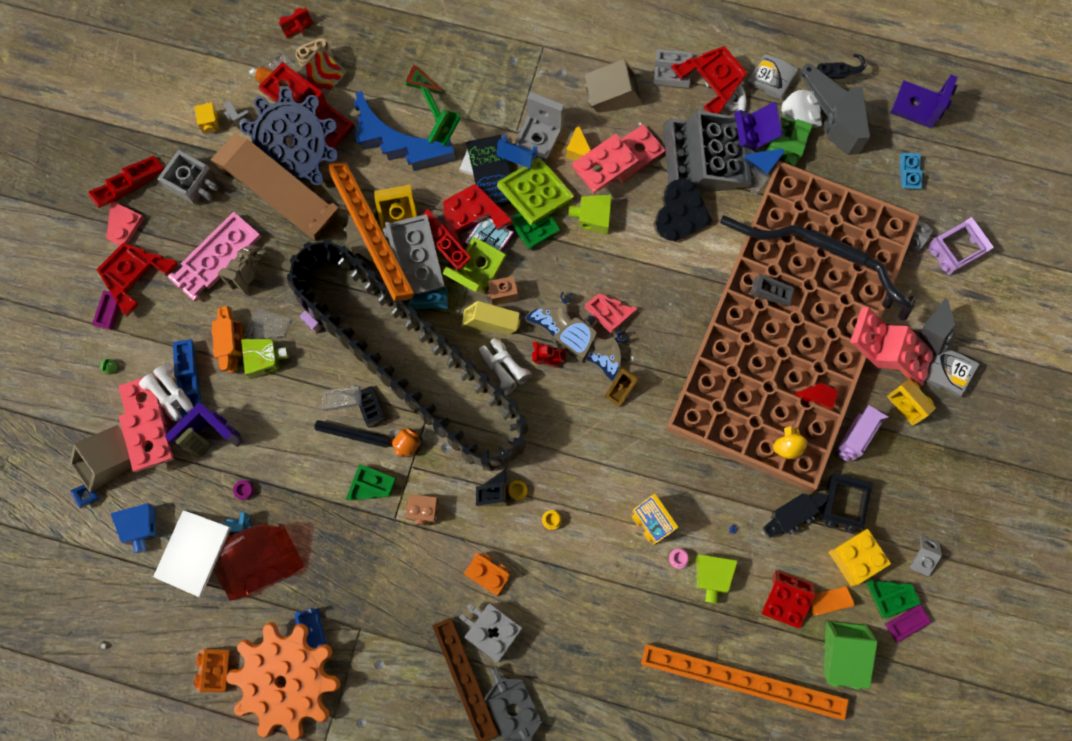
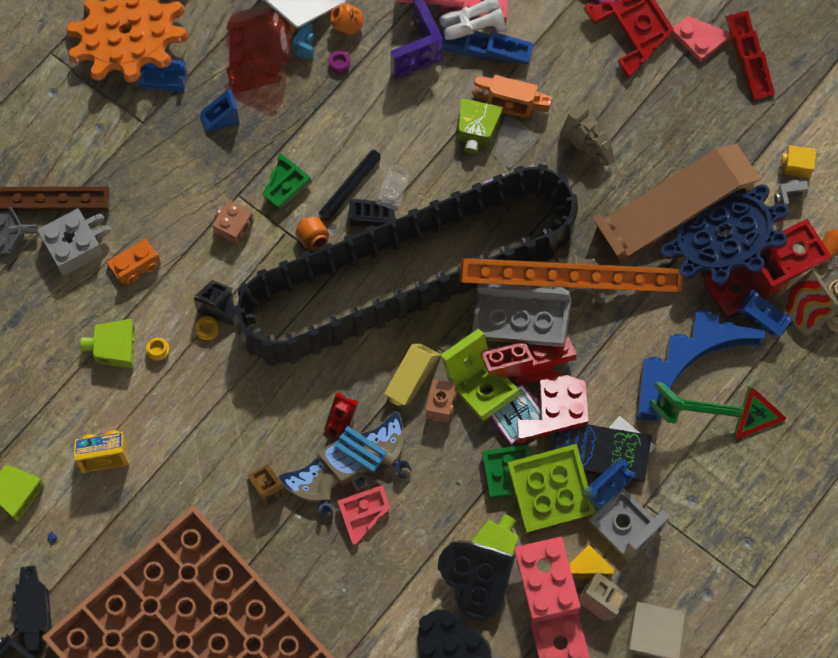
camera: 110 degrees right, 5 degrees down
(187, 178) = (725, 115): light grey hinge -> none
(193, 443) = (408, 26): olive slope -> none
(202, 497) = (347, 18): none -> orange head
(212, 255) = (619, 117): bright pink hinge -> none
(328, 564) = (220, 112): none -> blue slope
(342, 99) = (764, 314): none -> blue hinge
(395, 204) = (597, 324): yellow slope -> none
(430, 300) = (464, 317): dark azure plate -> none
(507, 382) = (333, 378): white piece -> none
(564, 556) = (112, 343): none -> lime torso
(571, 311) = (344, 438): none -> dark azure tile
(598, 127) = (602, 597): none -> dark tan piece
(623, 212) = (477, 575): none -> black plate
(679, 558) = (50, 463): bright pink plate -> none
(791, 445) = (100, 626): yellow piece -> none

